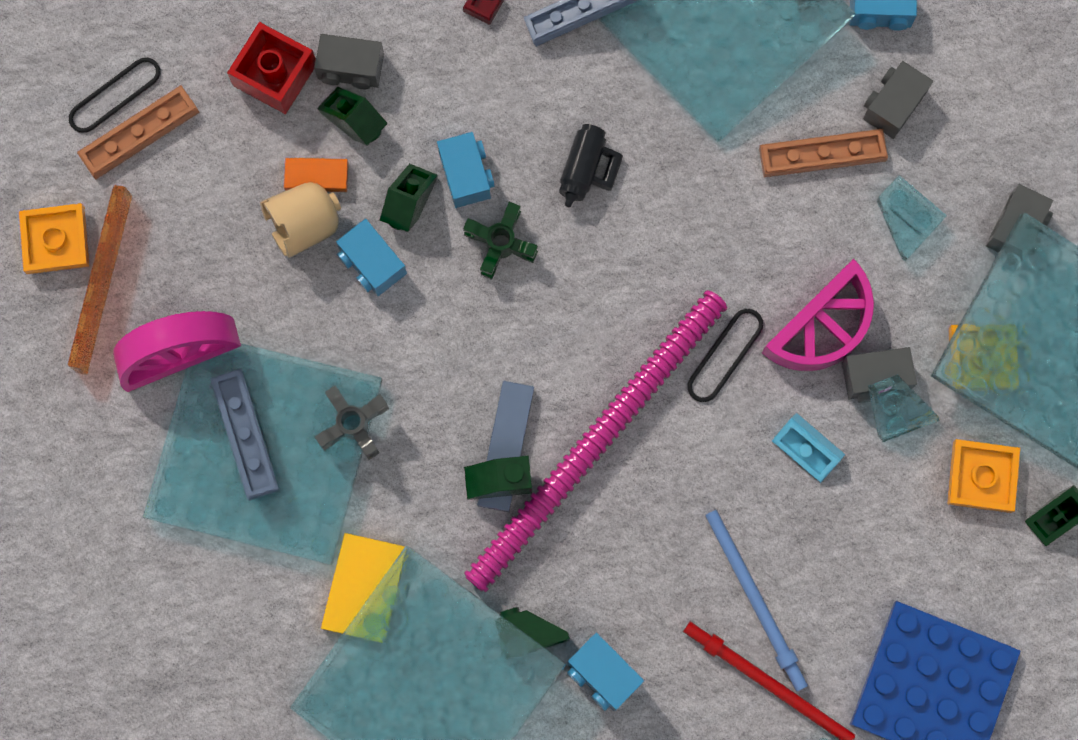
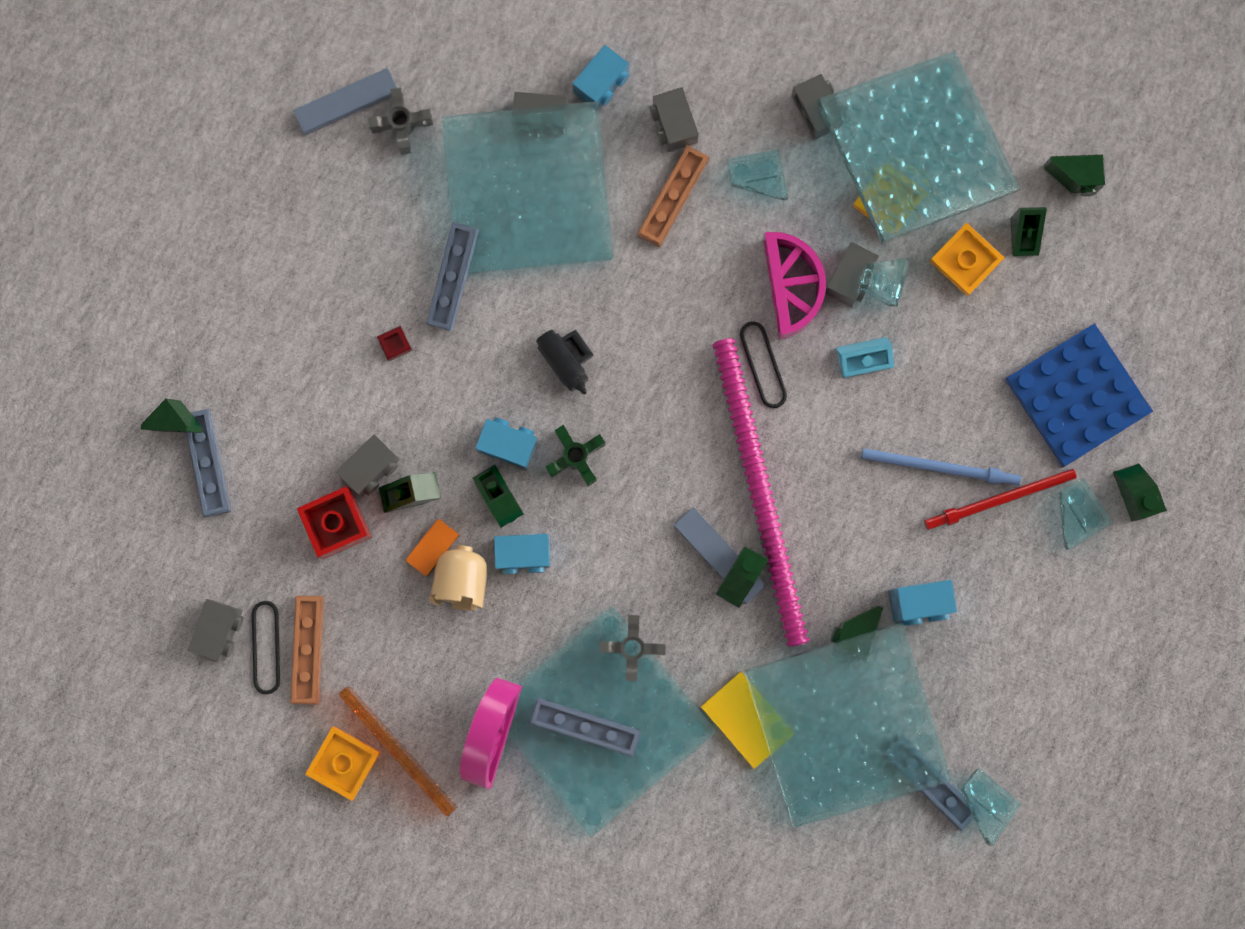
camera: 55 degrees left, 5 degrees up
(97, 37) = (216, 630): none -> dark grey brick

